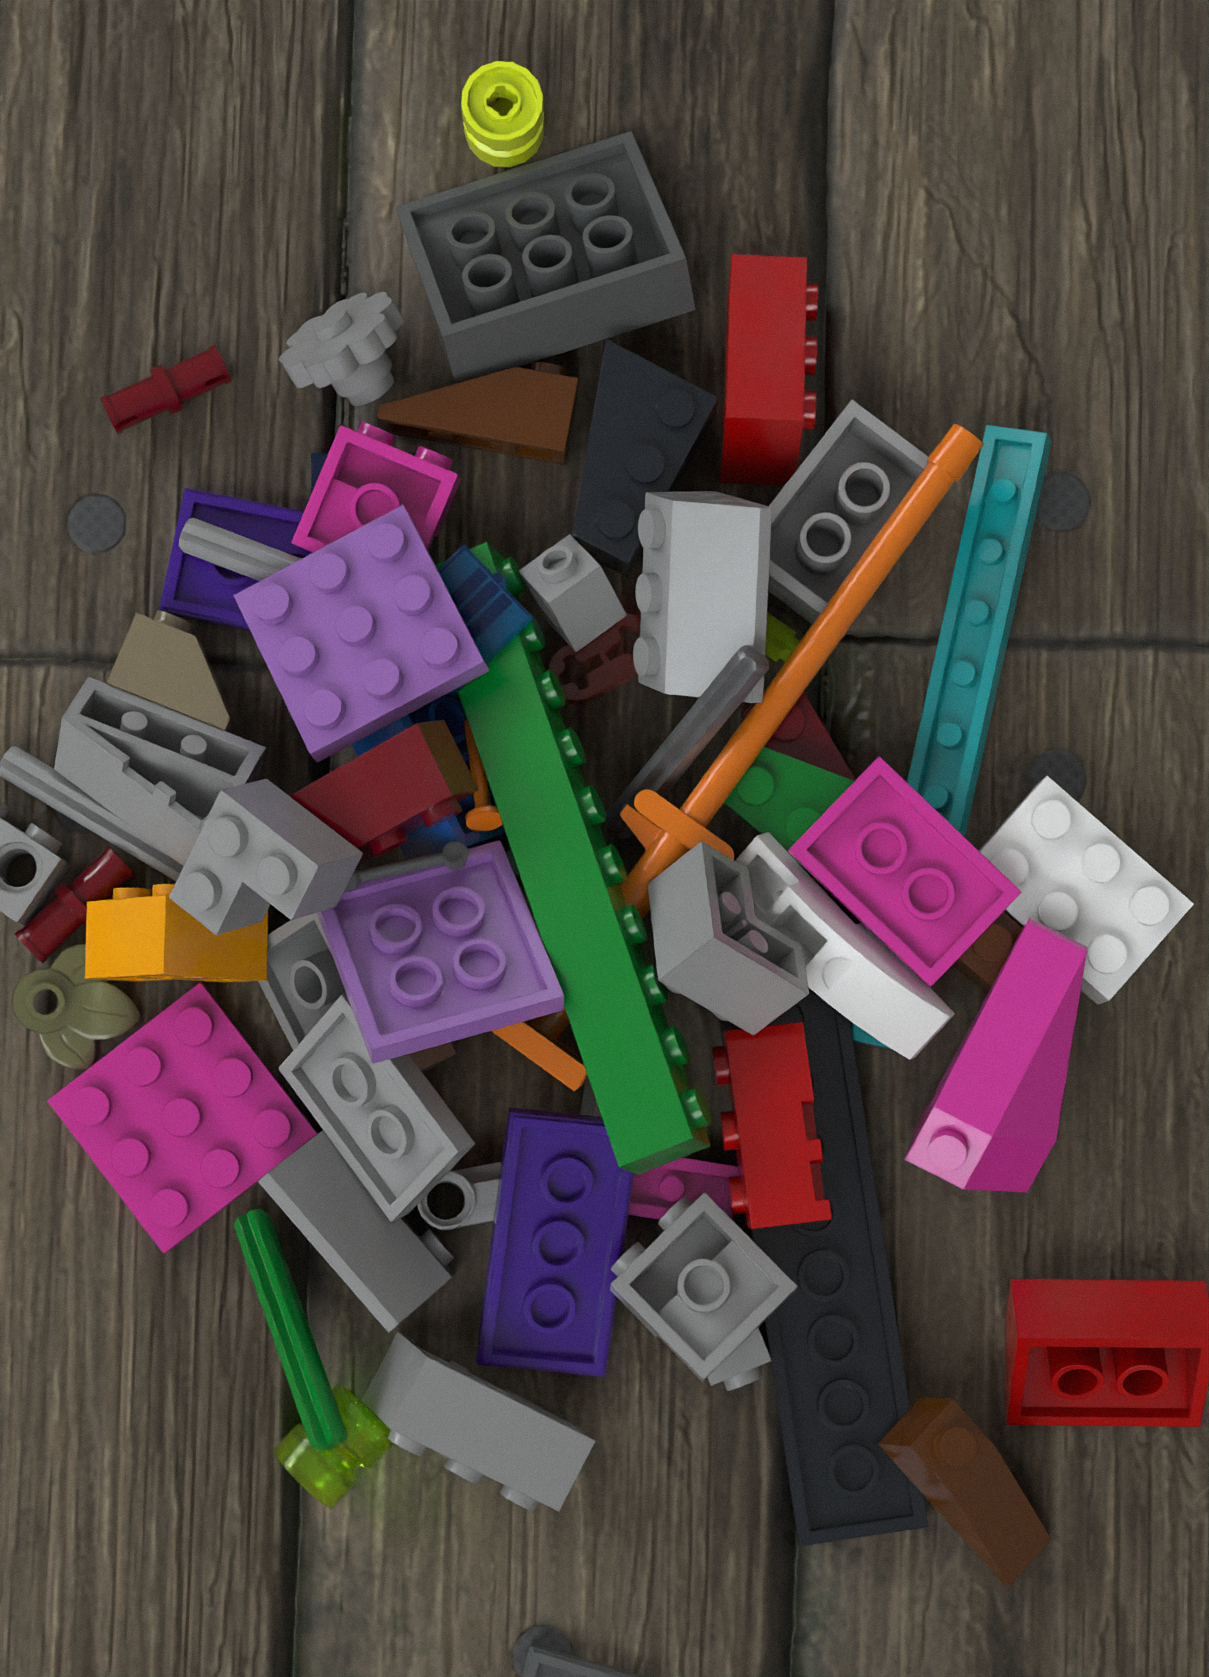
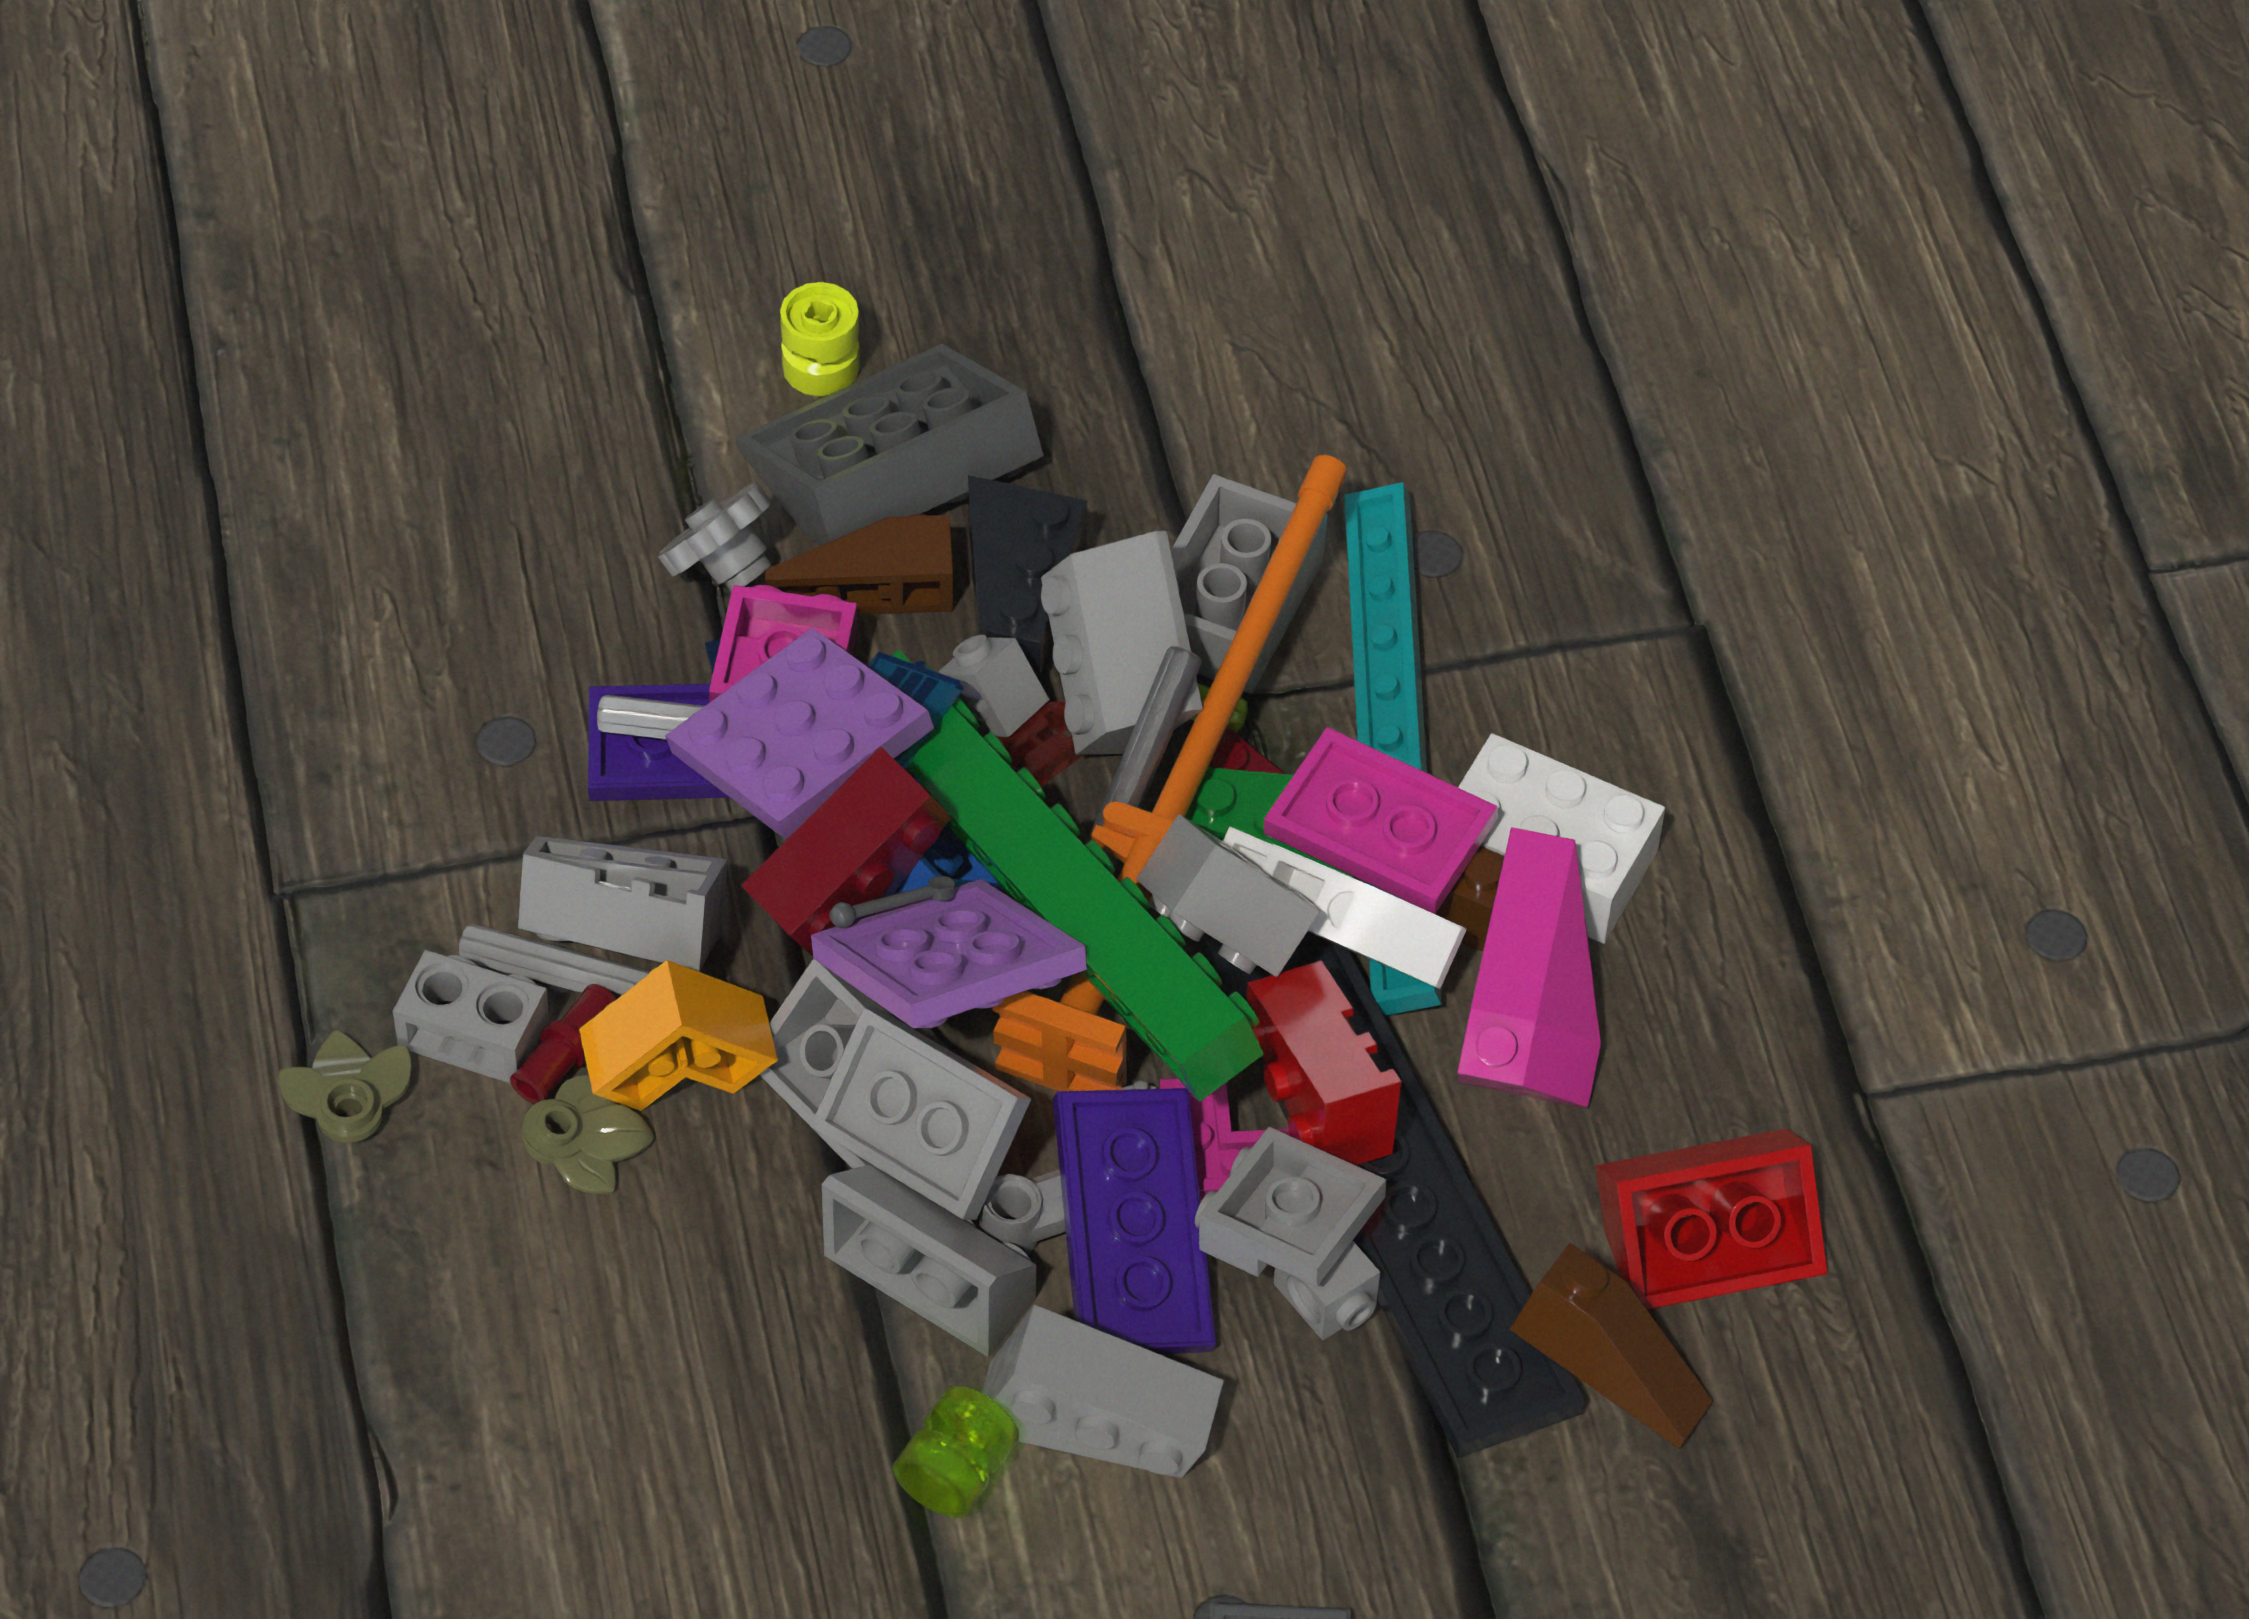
camera: 15 degrees left, 30 degrees down
(166, 389) = (550, 612): dark red pin -> none
(171, 670) = (615, 814): dark tan slope -> none
(182, 1117) = (714, 1212): dark pink plate -> none
(260, 853) = (745, 896): light grey brick -> none
(290, 1330) = (884, 1347): green axle -> none
(484, 815) = (961, 858): orange pin -> none
(767, 368) = (1122, 466): red wedge -> none

